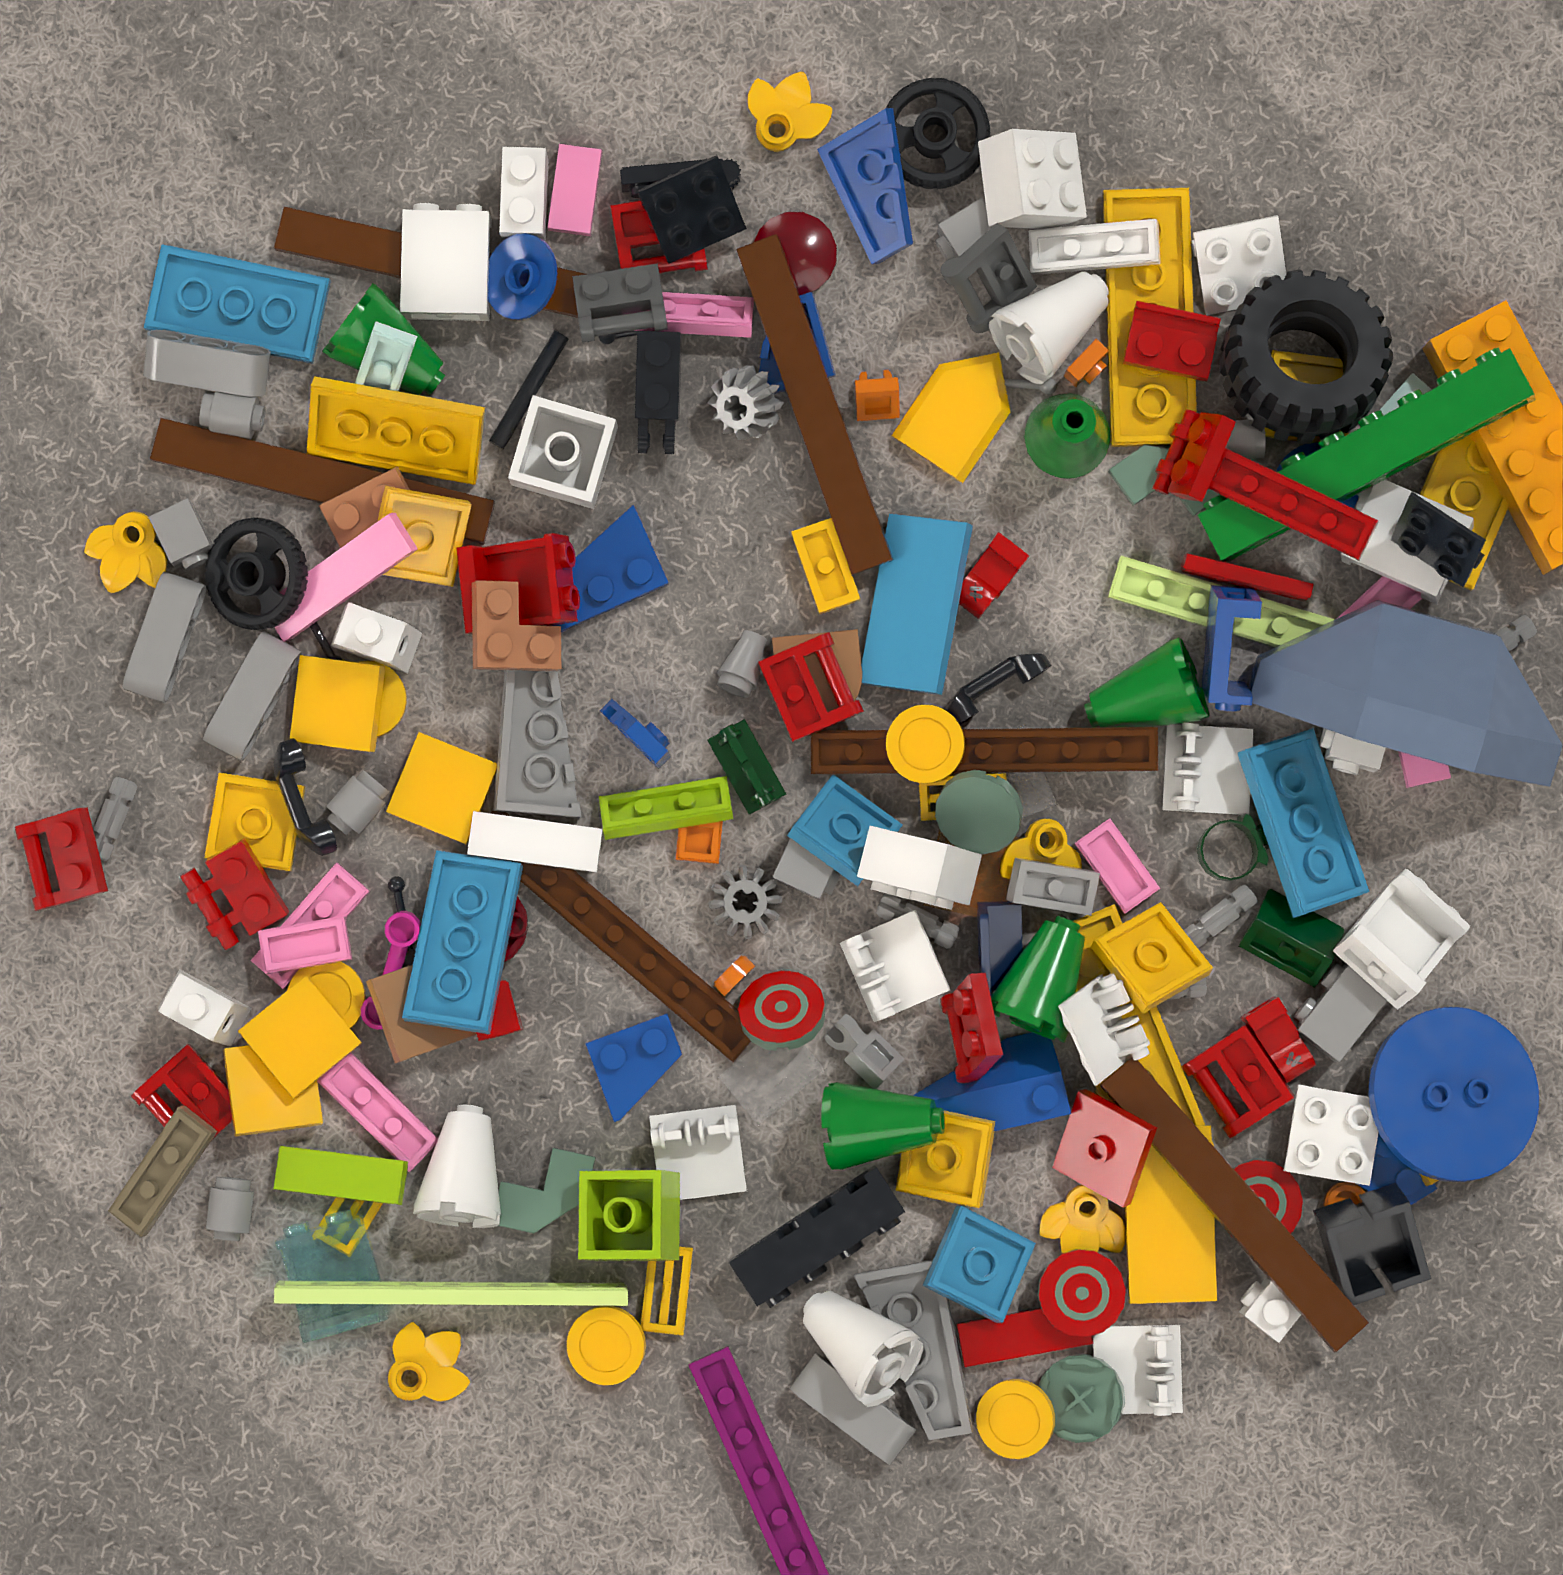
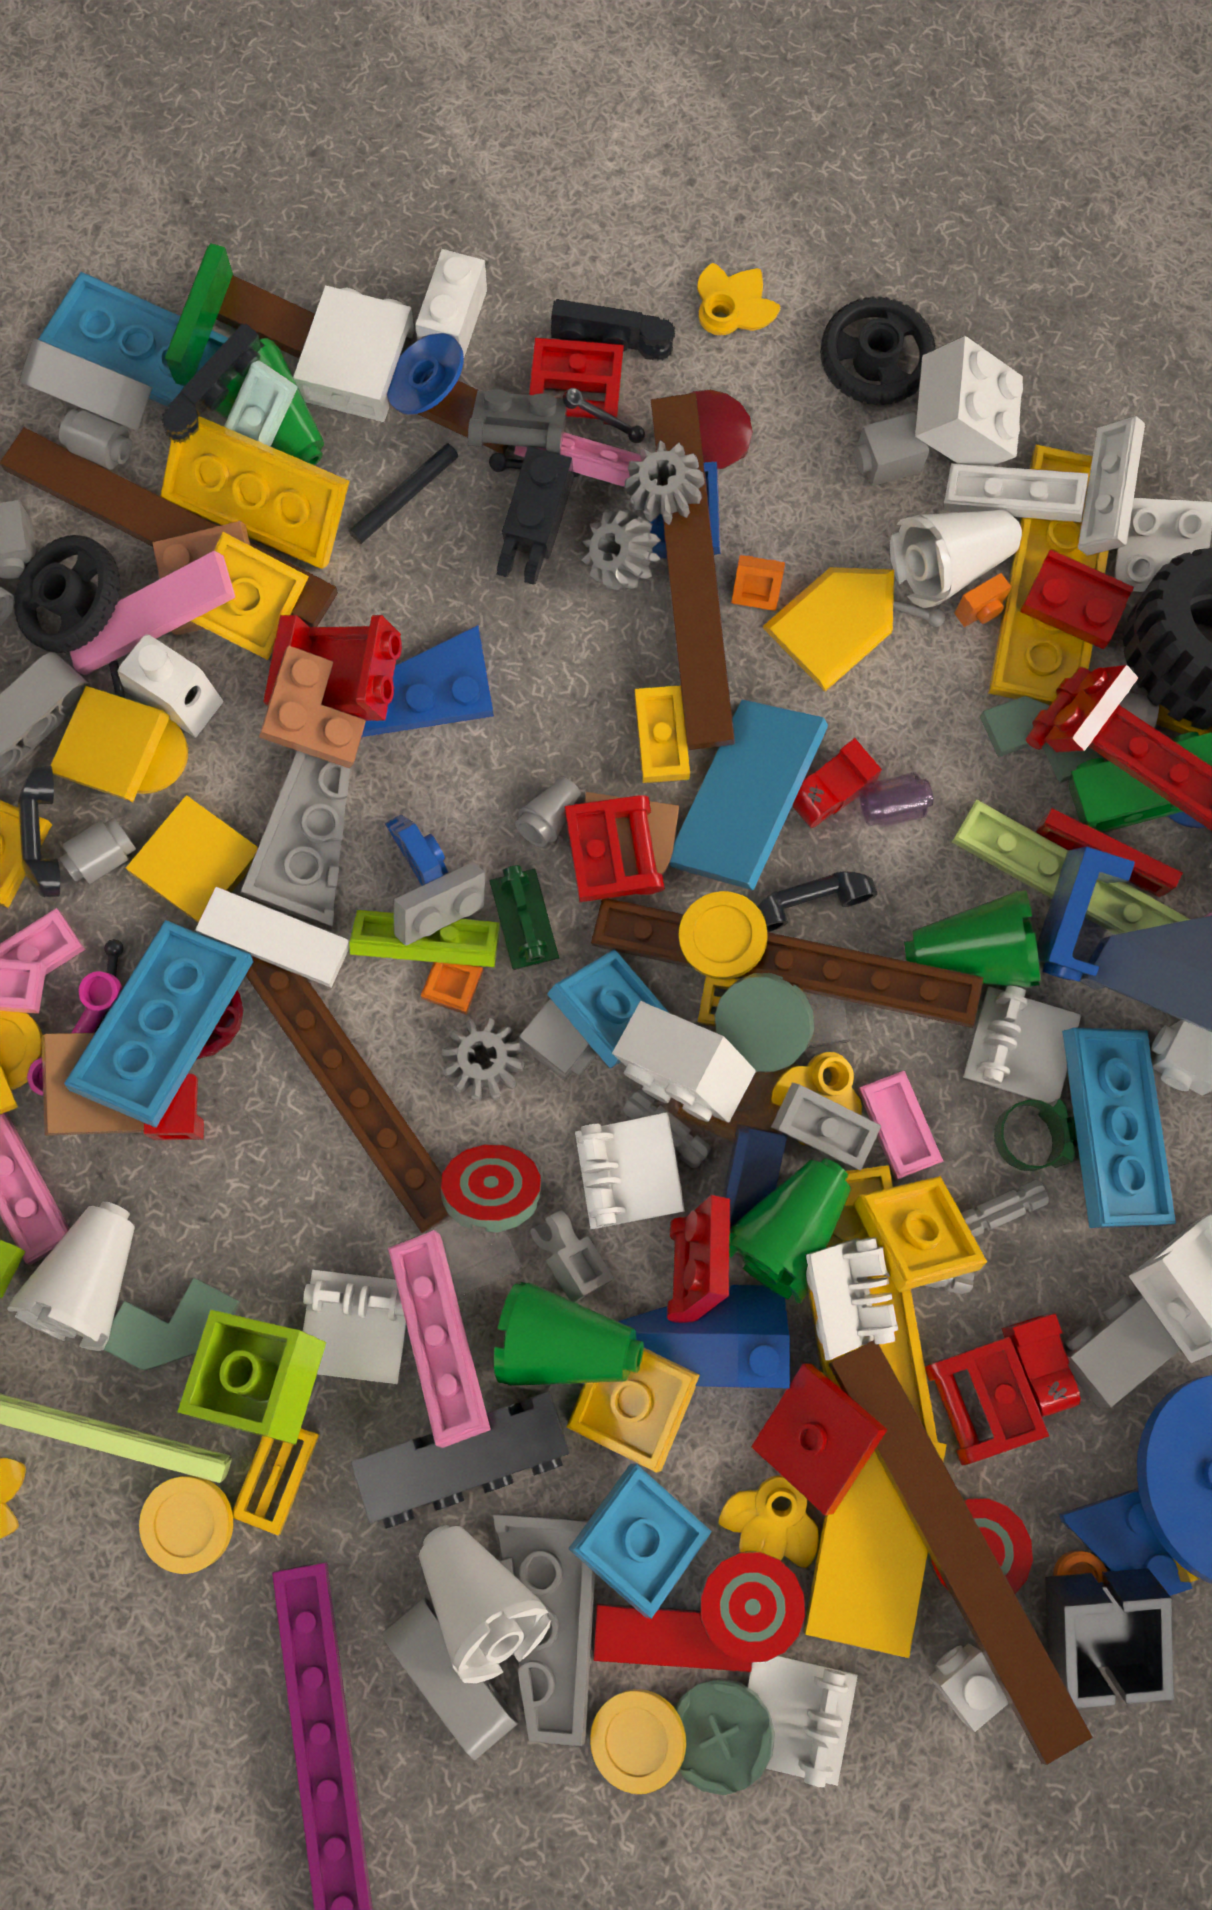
camera: 10 degrees right, 10 degrees down
(293, 269) = (199, 314): none -> green tile
(339, 360) = (210, 383): none -> black hinge
(563, 452) = (419, 551): white brick -> none
(574, 190) = (504, 321): bright pink tile -> none
(633, 1061) = (311, 1204): blue wing -> none
(665, 265) = (573, 399): none -> black hinge
(672, 776) = (439, 903): none -> light grey plate
(692, 209) = (616, 348): black hinge -> none
(734, 975) = (449, 1136): orange tile -> none
(757, 330) = (659, 466): none -> light grey gear
(773, 1146) = (438, 1339): none -> bright pink tile
(871, 184) = (802, 379): blue wing -> none
(1000, 271) = (914, 479): dark grey plate -> none
(1049, 575) = (896, 800): none -> clear purple brick
(1063, 449) = (949, 662): green cone -> none
(1180, 223) = (1111, 486): none -> white tile
(1295, 945) = (1079, 1258): dark green panel -> none
(1332, 1136) = (1084, 1493): white hinge -> none

